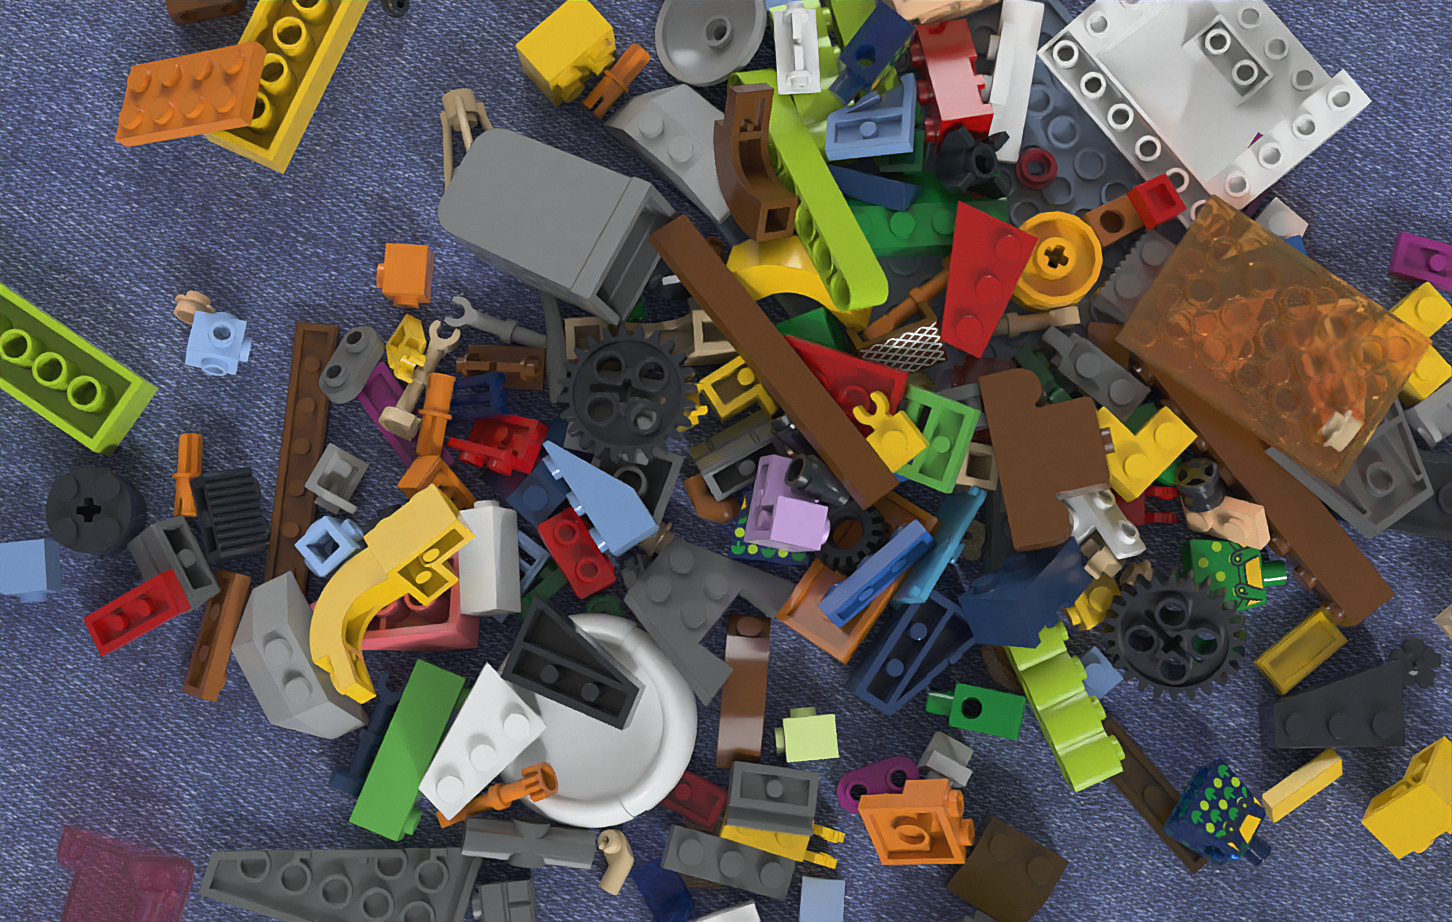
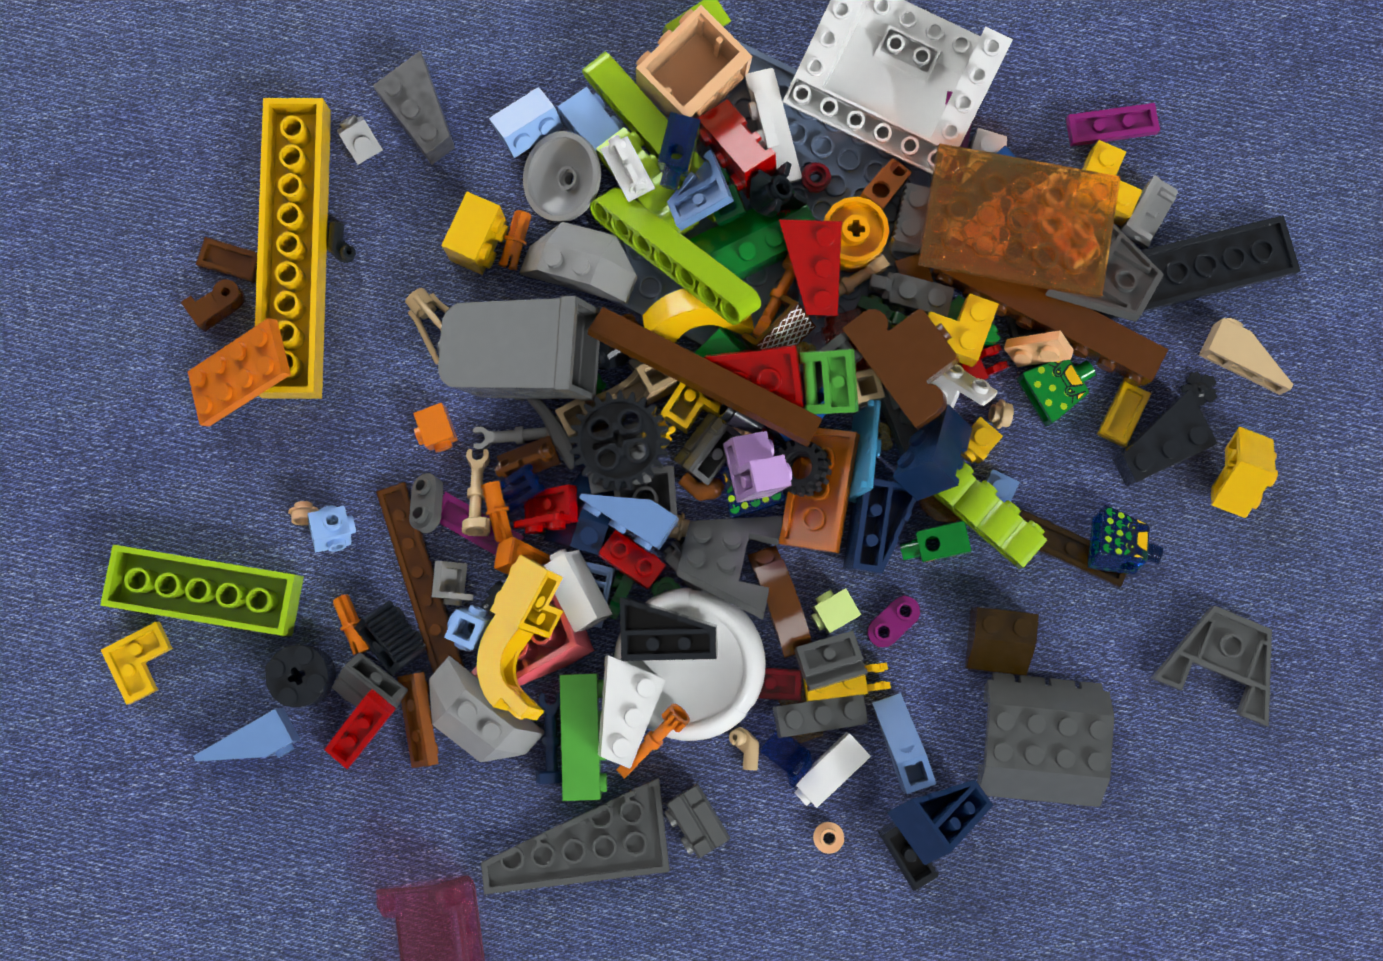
camera: 25 degrees left, 0 degrees up
(406, 348) = (458, 476): yellow plate -> none
(528, 842) = (685, 761): dark grey piece -> none
(744, 167) = (628, 260): reddish brown arch -> none
(815, 480) = (765, 441): black cone -> none
(874, 188) = (719, 235): dark blue slope -> none
(876, 573) = (832, 484): blue plate -> none
(895, 436) = (806, 390): yellow plate -> none
(918, 825) = (932, 634): orange plate -> none
(946, 760) = (931, 587): light grey bracket -> none
(1100, 557) = (970, 409): tan plate -> none
(1156, 201) = (904, 164): red plate -> none
(1174, 634) = (1040, 438): black gear -> none
(1200, 485) = (1013, 335): black wheel -> none
(1302, 784) = (1163, 498): yellow tile -> none
(1340, 430) = (1087, 259): tan plate -> none

